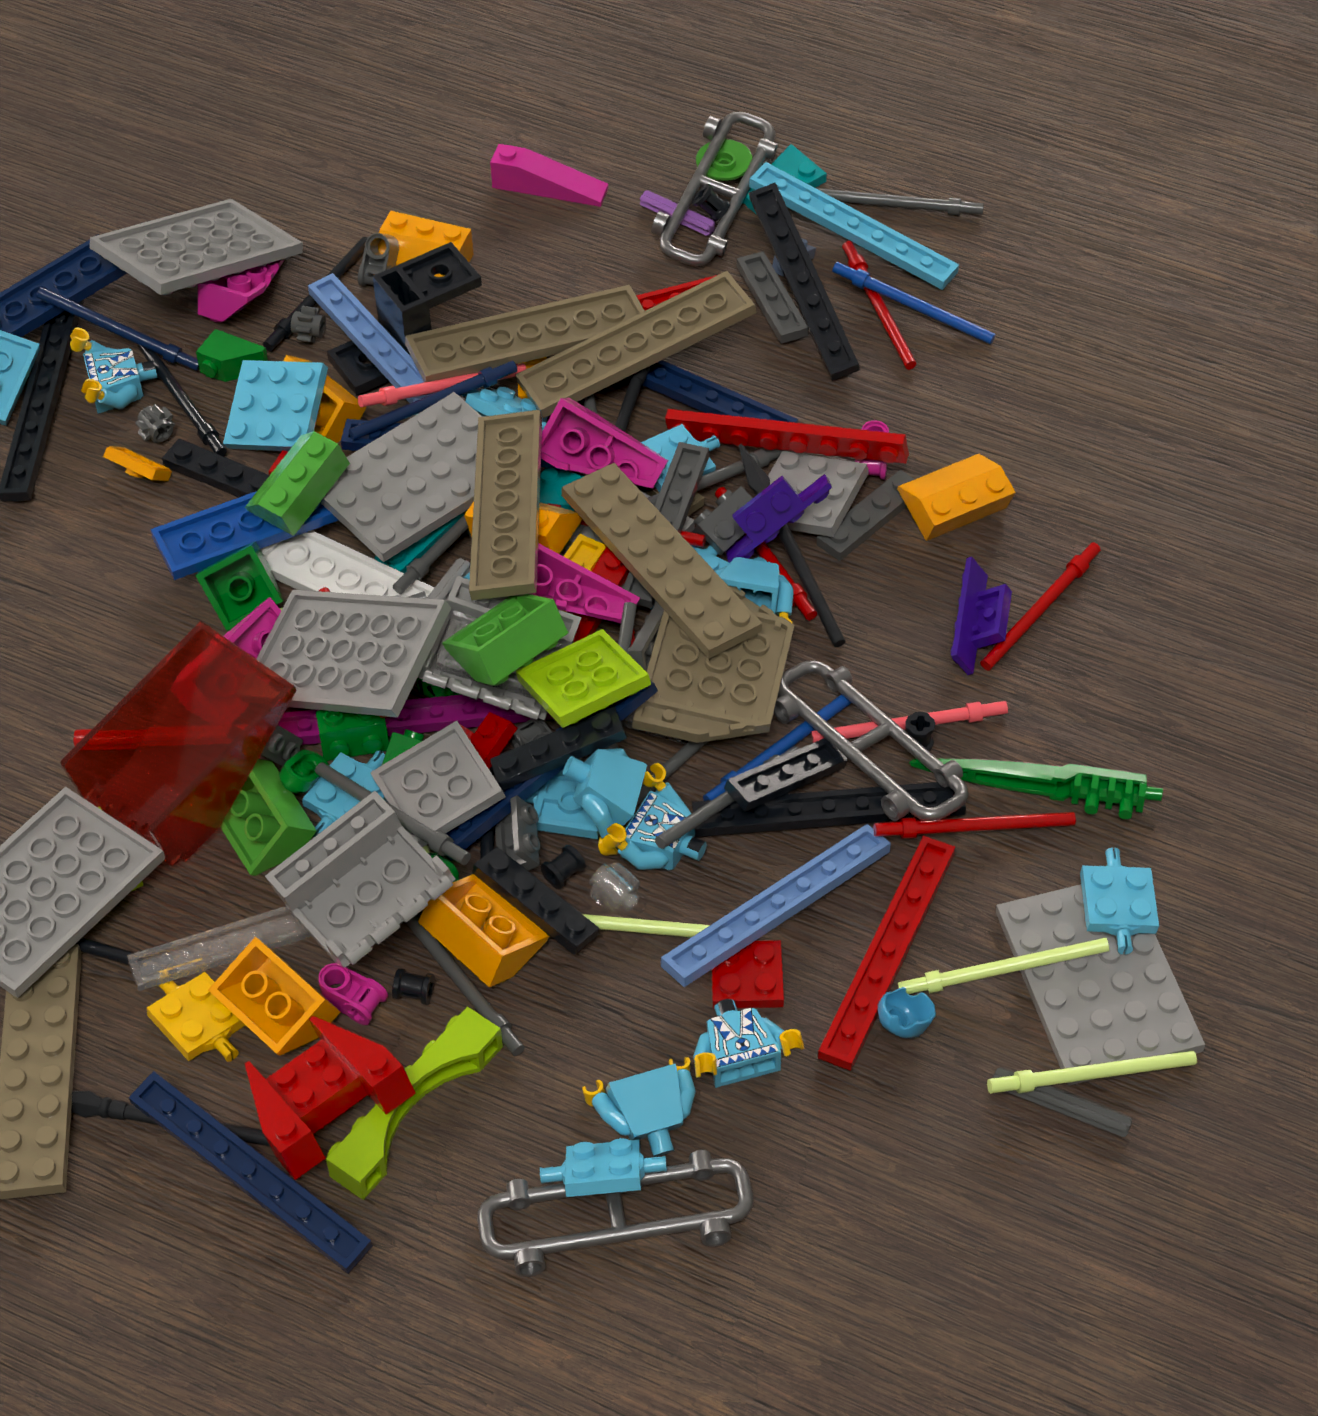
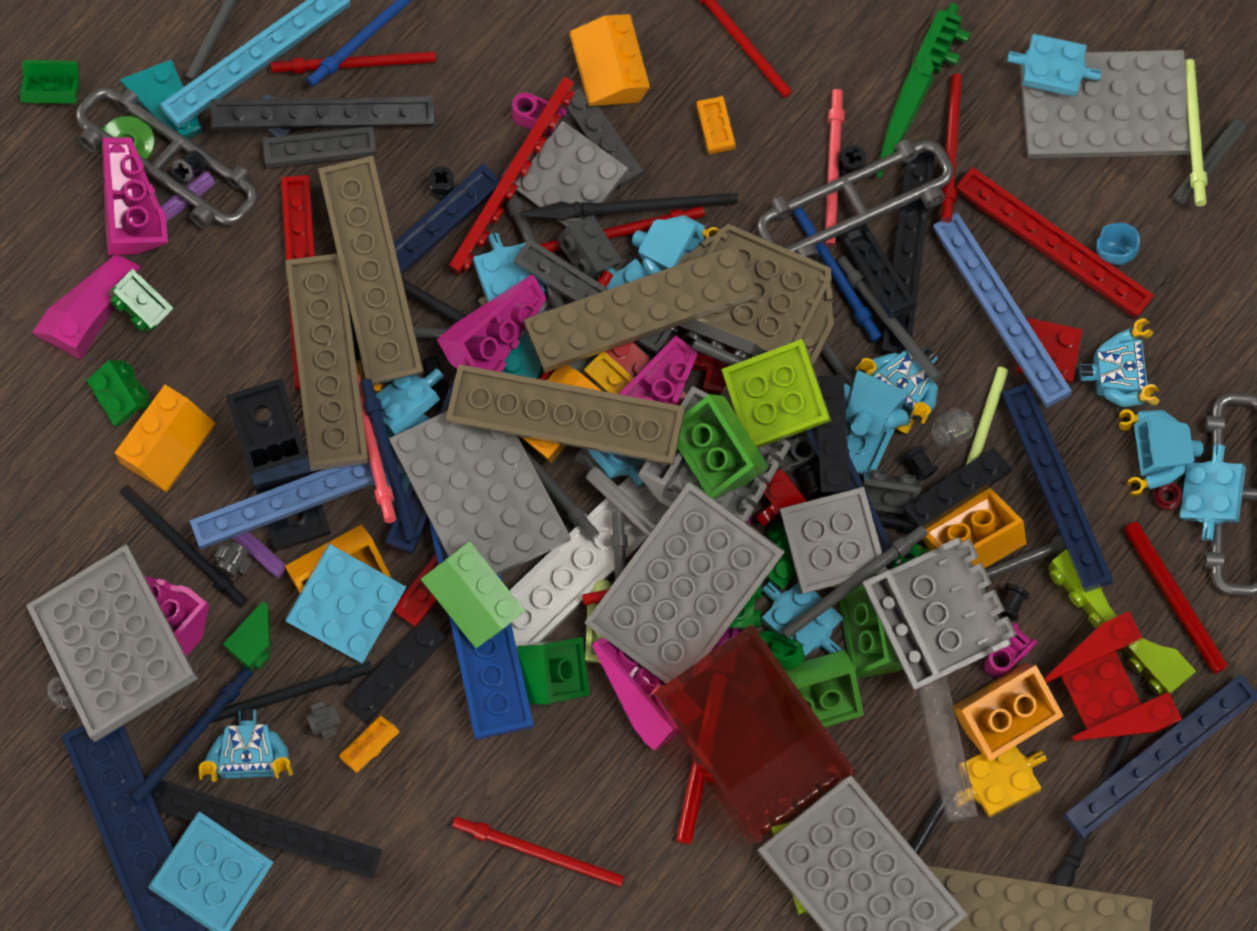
camera: 80 degrees left, 20 degrees up
(60, 574) = (483, 832): none -> red bar
(327, 341) = (261, 554): none -> medium lavender axle
(373, 261) = (174, 481): dark grey piece -> none
(459, 1161) = (1175, 597): none -> red axle
(470, 210) = (118, 391): none -> green bracket
(552, 997) = (1057, 488): none -> dark blue plate
(555, 200) = (139, 301): none -> bracket
(589, 1121) = (1174, 491): none -> dark red plate
(654, 165) = (131, 208): none -> dark pink wedge
(764, 389) = (440, 175): none -> black bush
(767, 98) = (50, 81): none -> green bracket
(772, 510) = (617, 203): dark purple bracket -> none
(919, 605) = (715, 125): none -> light orange plate
(936, 981) = (1088, 216): yellowish green bar -> none
(980, 616) = (744, 79): dark purple bracket -> none

